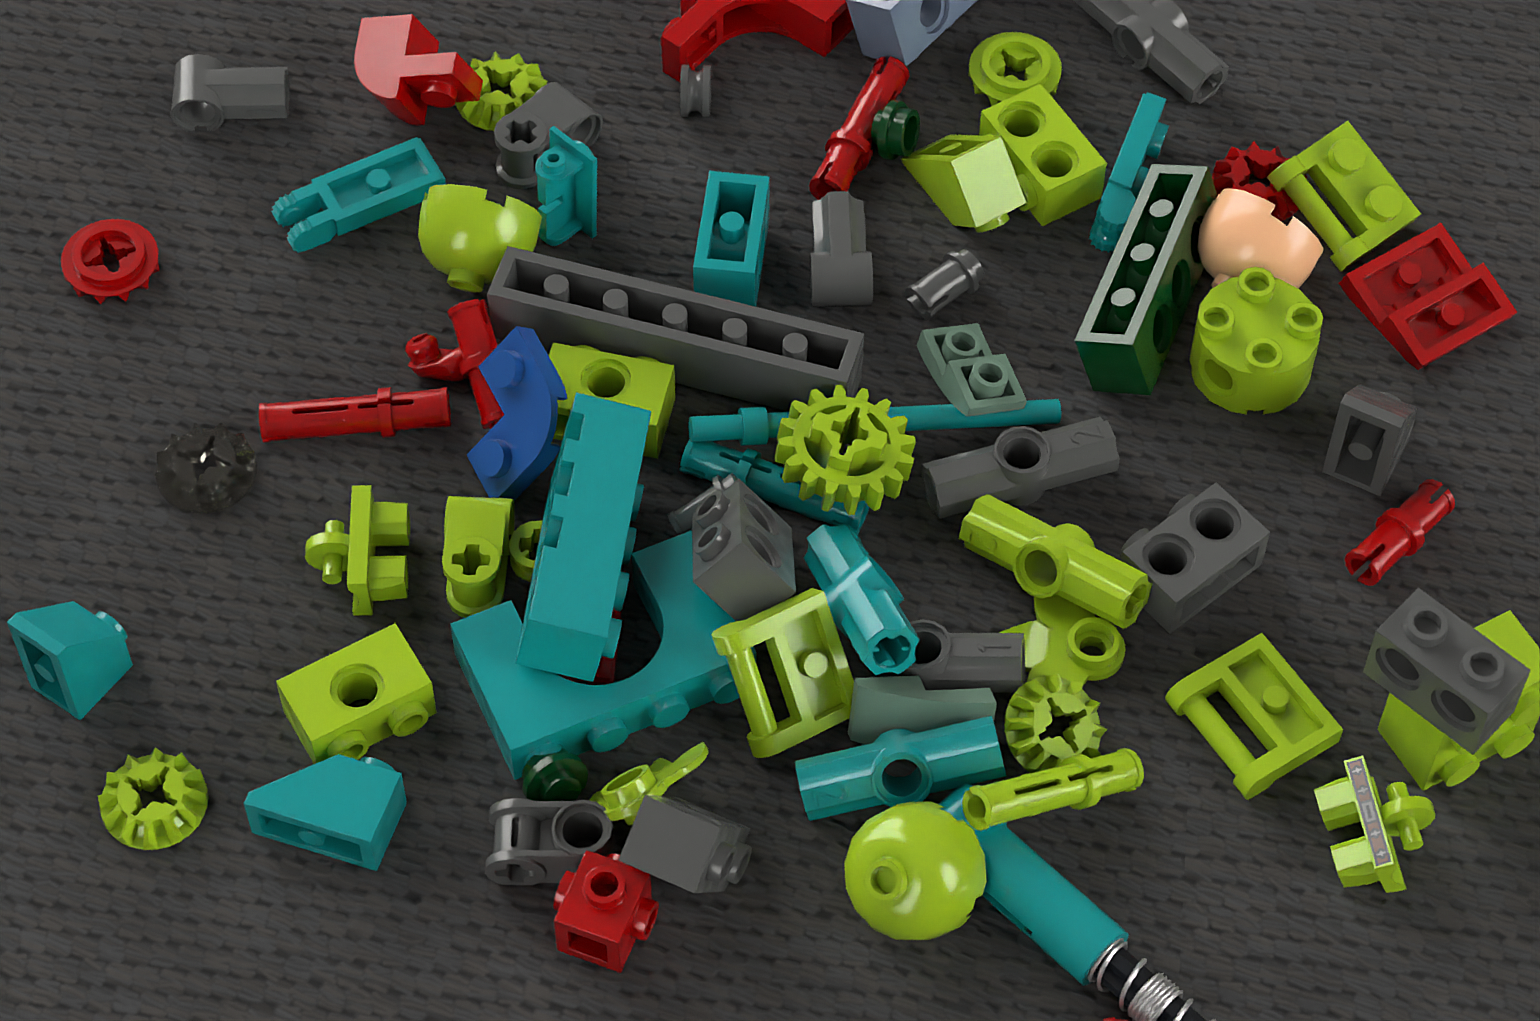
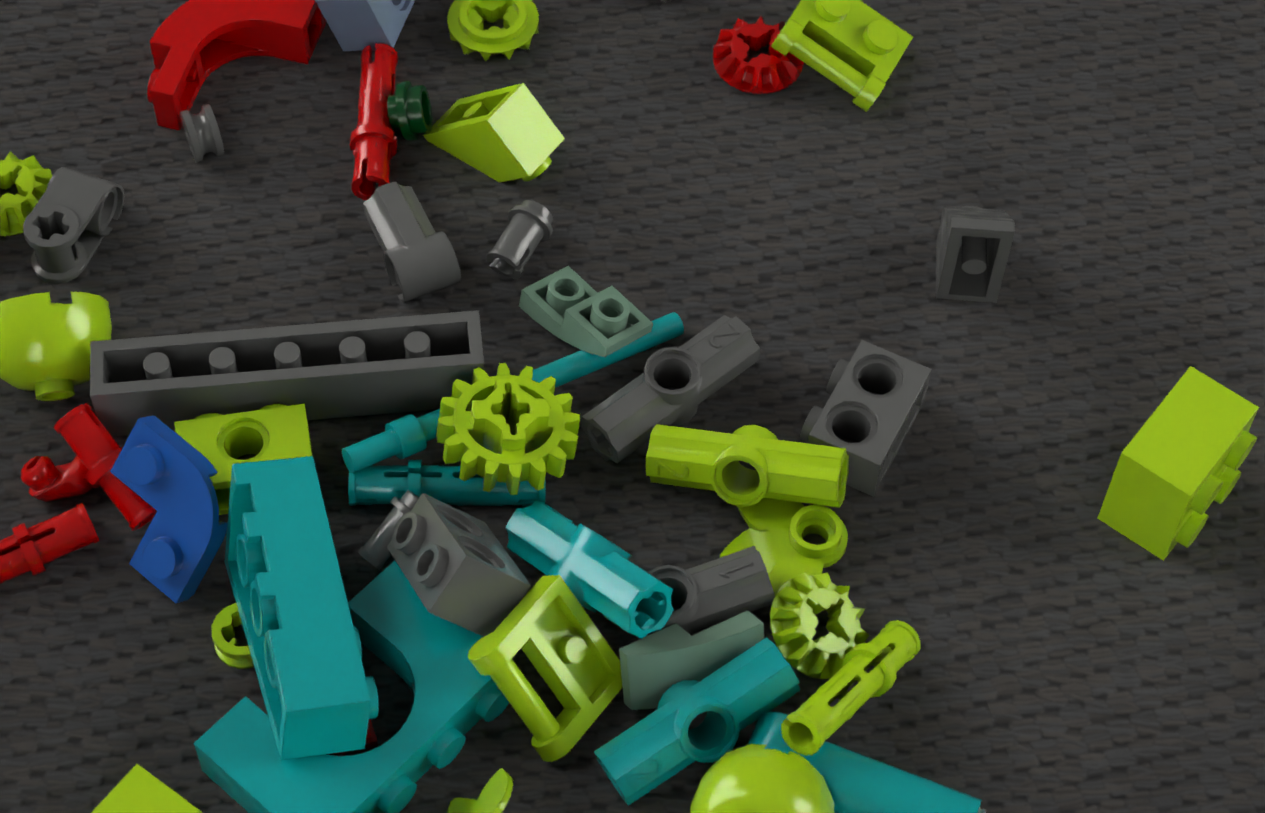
camera: 25 degrees left, 0 degrees up
(368, 575) = (65, 670): lime hips -> none
(476, 552) = (182, 654): lime piece -> none
(566, 189) = (123, 265): teal hinge -> none
(732, 237) = (305, 260): teal brick -> none
(1048, 153) = (569, 86): lime brick -> none
(1128, 175) = (643, 87): teal hinge -> none
(1147, 282) = (711, 173): dark green brick -> none
(1244, 235) = (790, 115): light nougat cylinder -> none
(1255, 343) = (830, 199): lime brick -> none
(1269, 701) = (998, 529): lime plate -> none
(1373, 855) = (1121, 590): lime hips -> none
(1399, 532) = (1033, 329): red pin -> none
(1427, 297) = (953, 110): red slope -> none
(1446, 670) = (1177, 442): dark grey brick -> none

